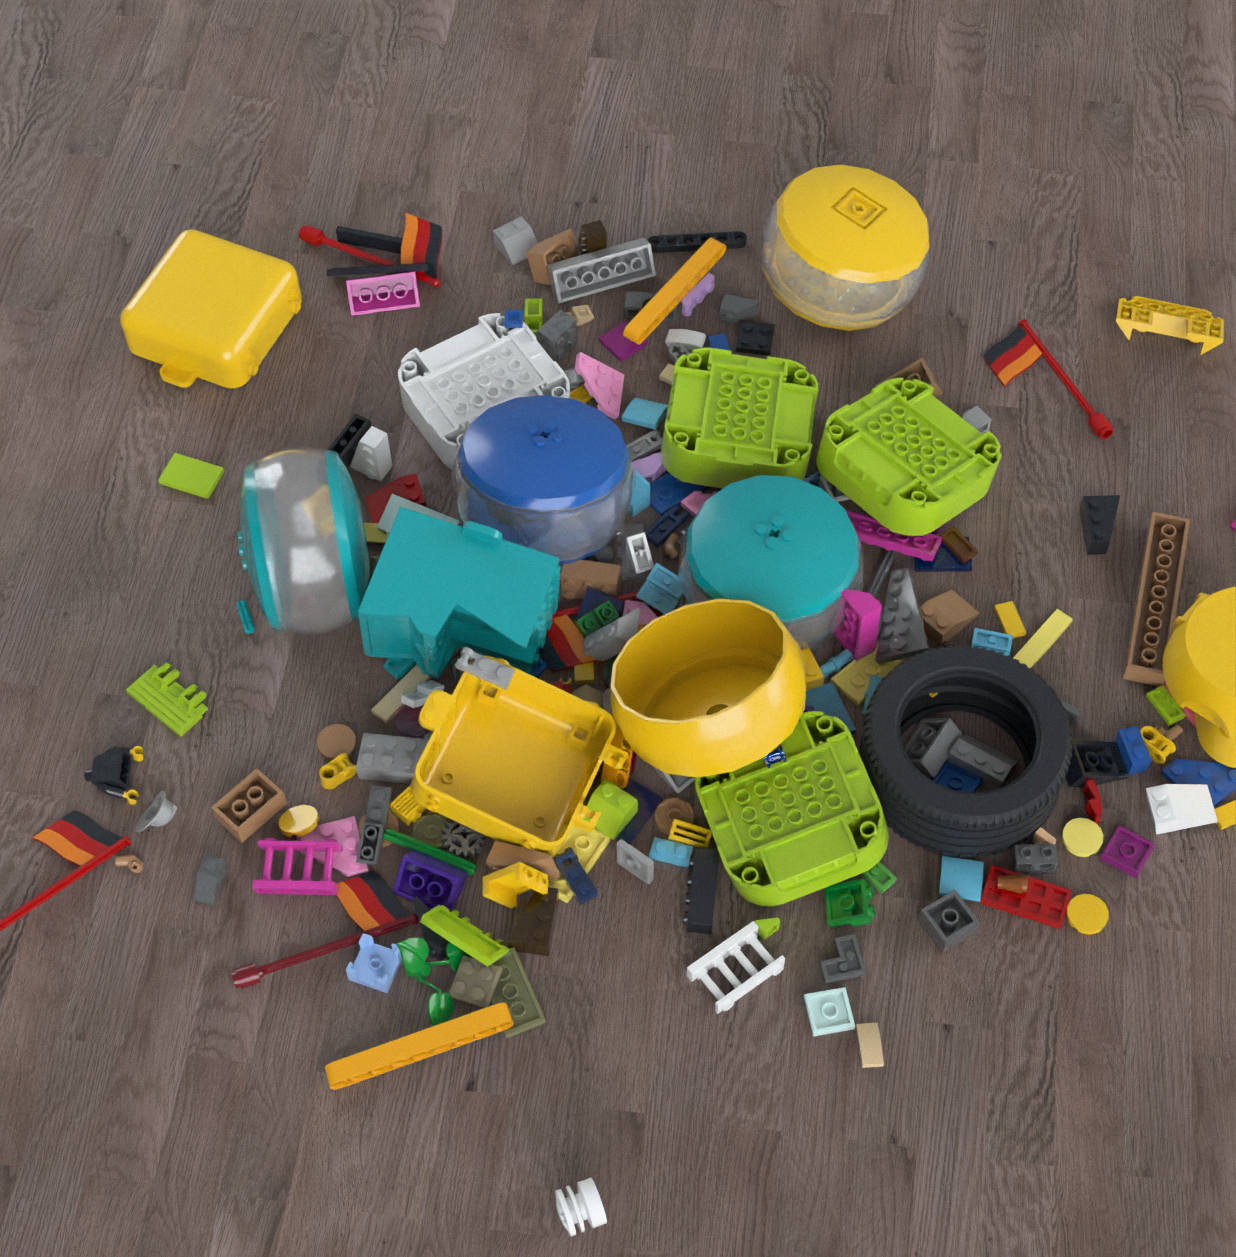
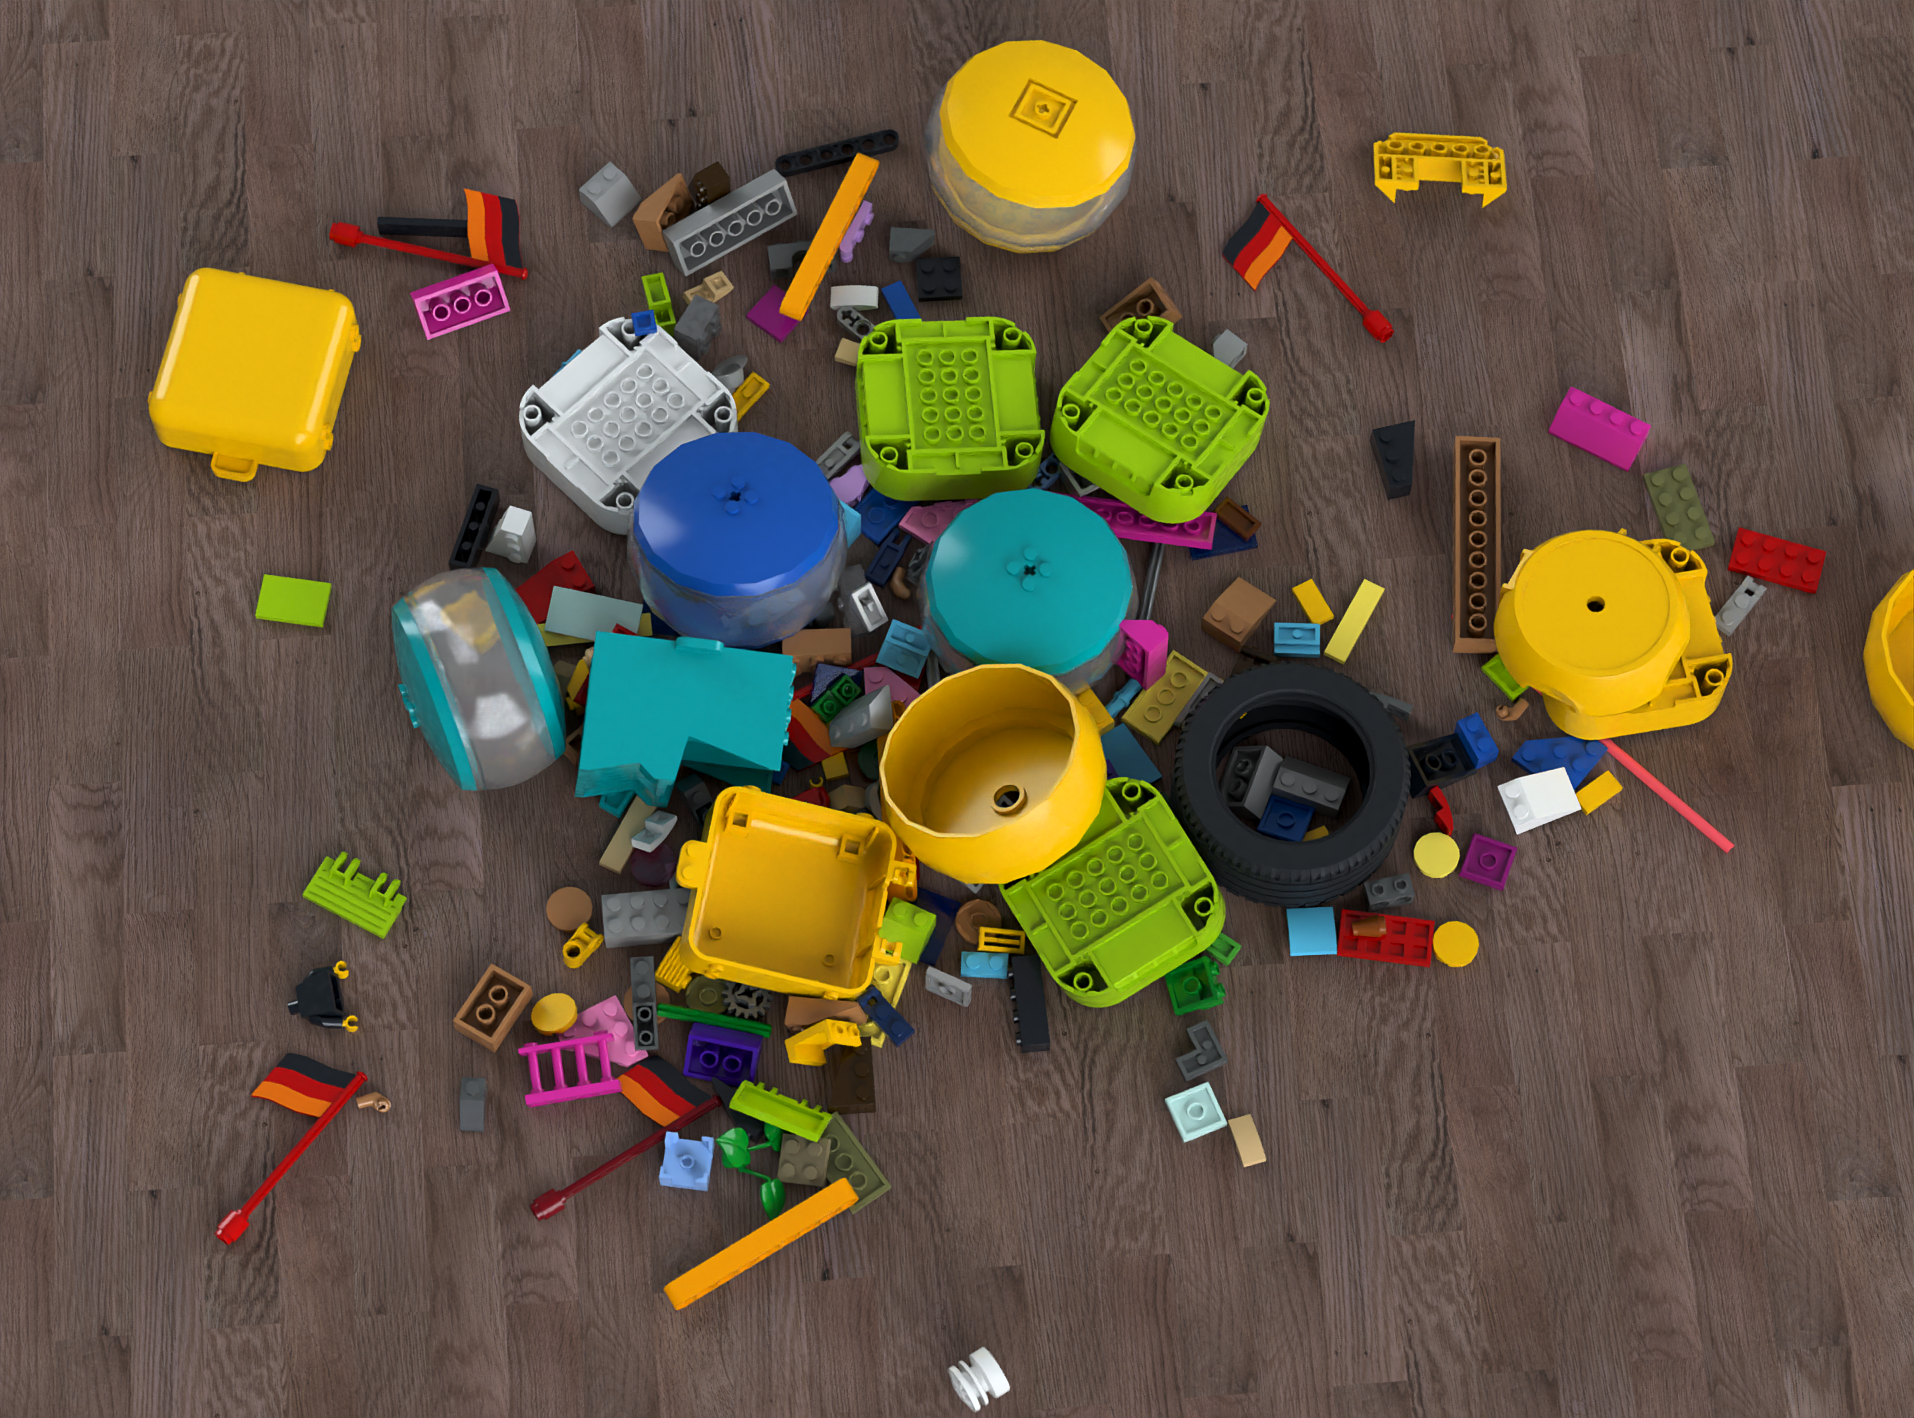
camera: 15 degrees left, 10 degrees up
(157, 814) = (387, 1038): light grey piece -> none
(245, 617) = (416, 774): teal axle -> none
(379, 269) = (447, 270): black tile -> none
(484, 668) = (736, 803): light grey plate -> none
(602, 383) = (768, 383): bright pink plate -> none
(645, 413) = (828, 411): medium azure slope -> none
(732, 947) = (1061, 1079): white fence -> none
(767, 927) = (1108, 1032): lime slope -> none
(775, 756) = (1087, 840): bush -> none
(873, 683) = (1172, 730): medium azure pin -> none
(902, 621) = (1192, 640): dark grey wing -> none
(948, 921) = (1307, 984): flat silver brick -> none
(1043, 837) = (1394, 867): light nougat plate -> none
(1157, 744) = (1502, 728): yellow piece -> none

